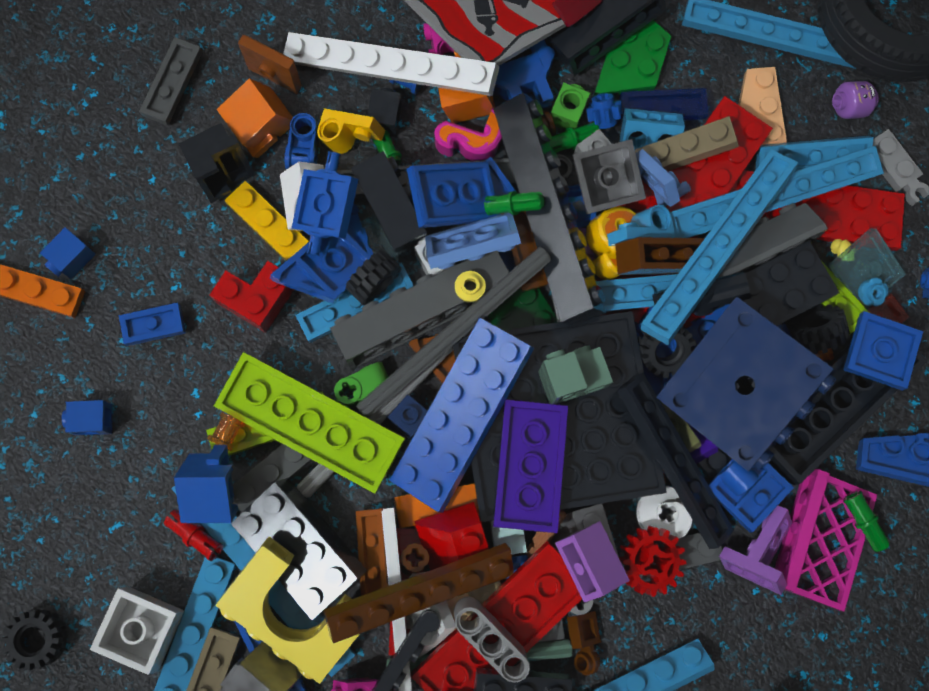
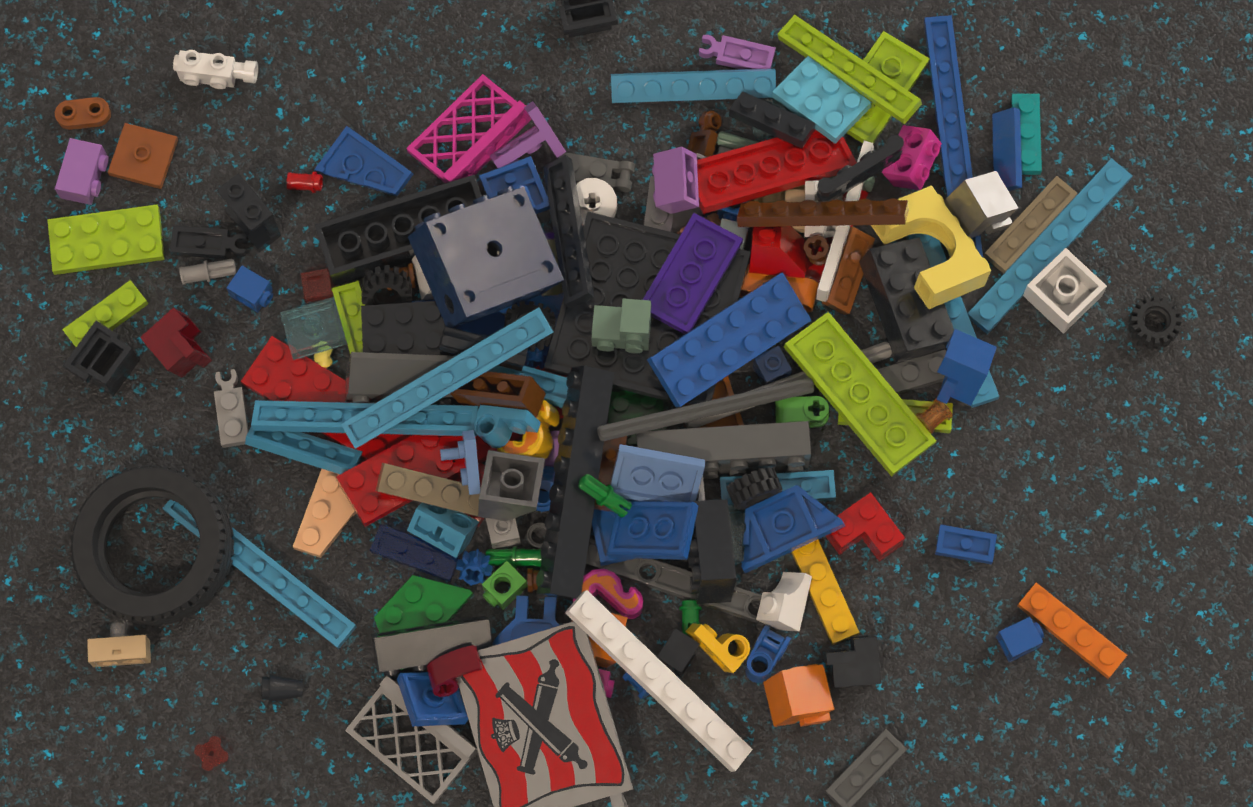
camera: 150 degrees left, 5 degrees down
(88, 417) = (1050, 483): blue brick -> none
(194, 536) = (1000, 355): red pin -> none
(270, 63) = (766, 735): dark orange plate -> none
(324, 203) = (771, 564): blue plate -> none
(470, 295) = (676, 443): light yellow plate -> none
(498, 652) = (782, 159): light grey beam -> none
(663, 566) = (624, 168): red gear -> none
(856, 99) = (238, 482): medium lavender head -> none
(866, 291) = (322, 304): dark azure plate -> none
(866, 521) = (429, 130): green axle -> none
(883, 350) = (351, 244): blue plate -> none

